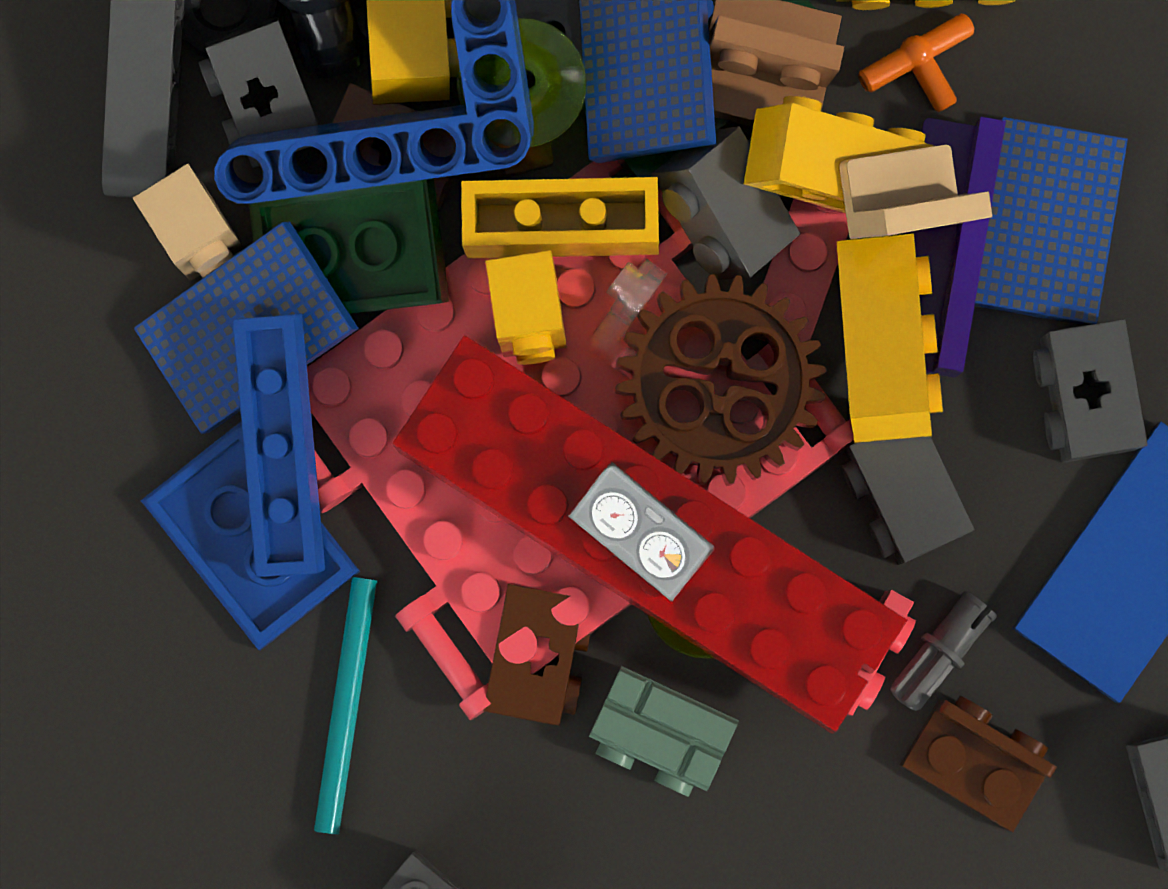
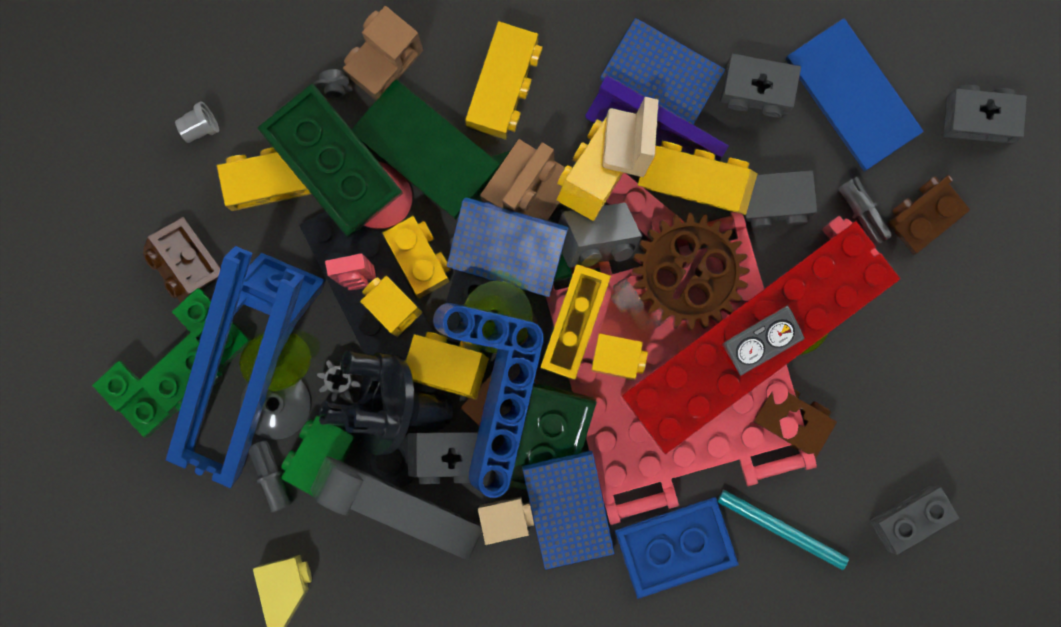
camera: 70 degrees left, 0 degrees up
(278, 445) = (639, 514): blue plate -> none
(663, 731) = (856, 369): sand green brick -> none
(918, 55) = (551, 108): orange piece -> none

